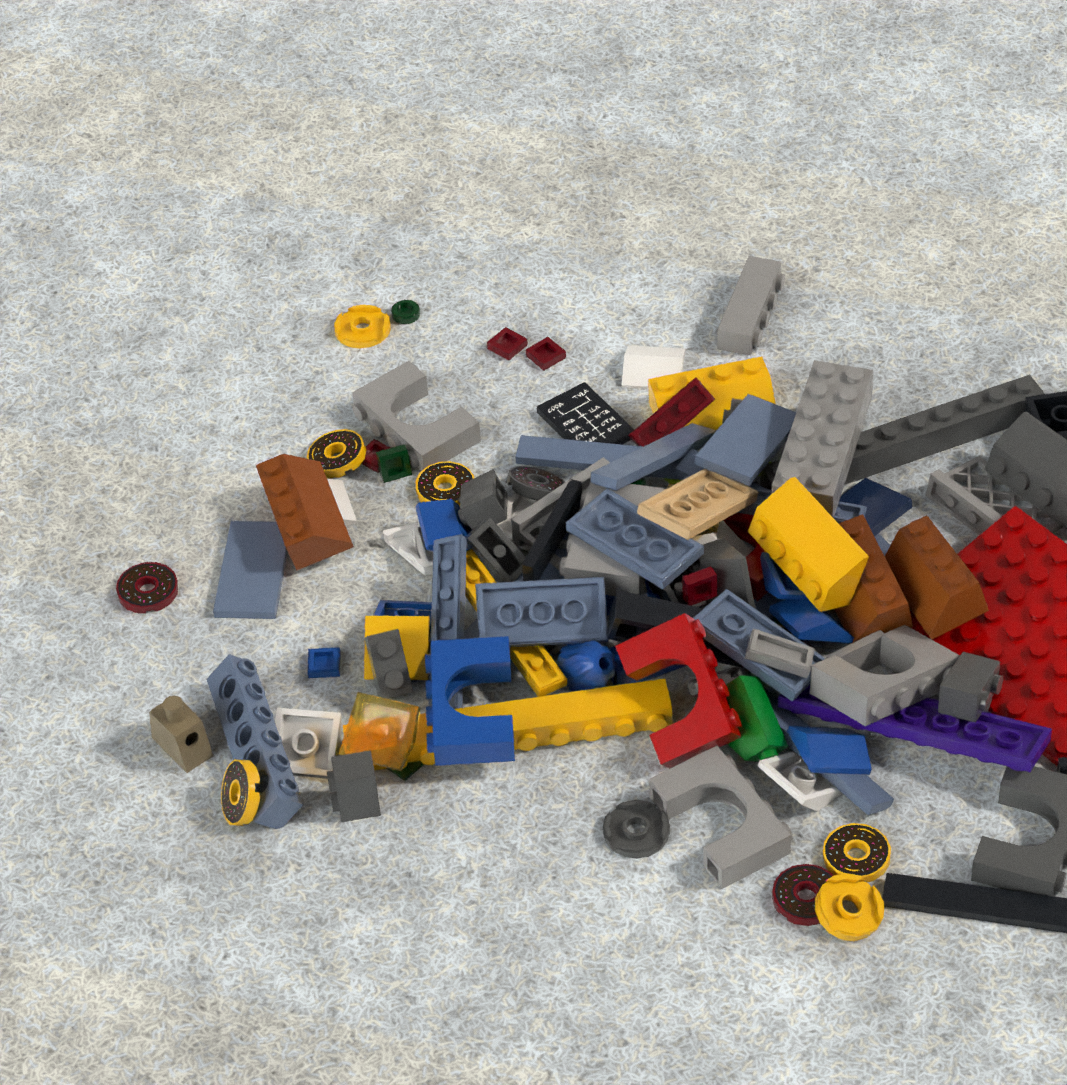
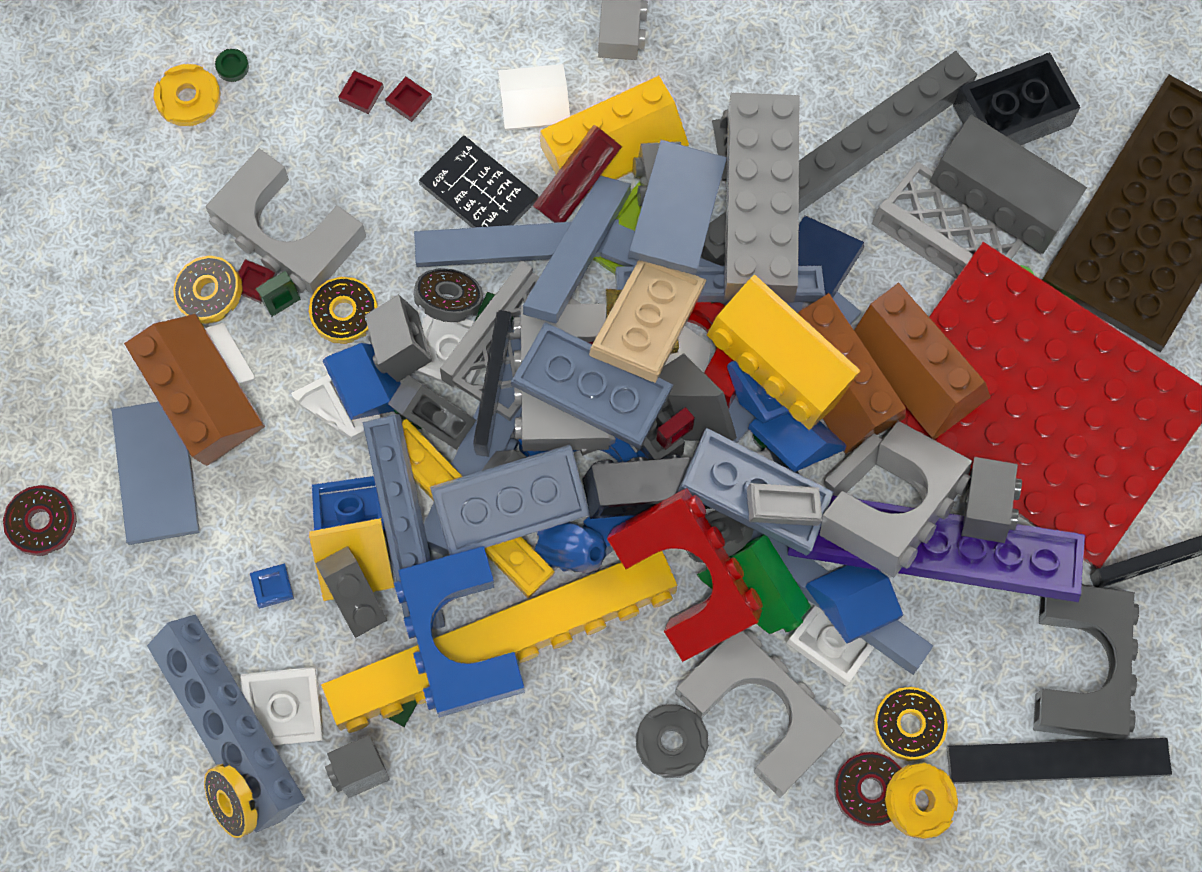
camera: 20 degrees left, 25 degrees up
(171, 725) = (139, 729): dark tan torso -> none
(382, 727) = (369, 695): clear yellow slope -> none

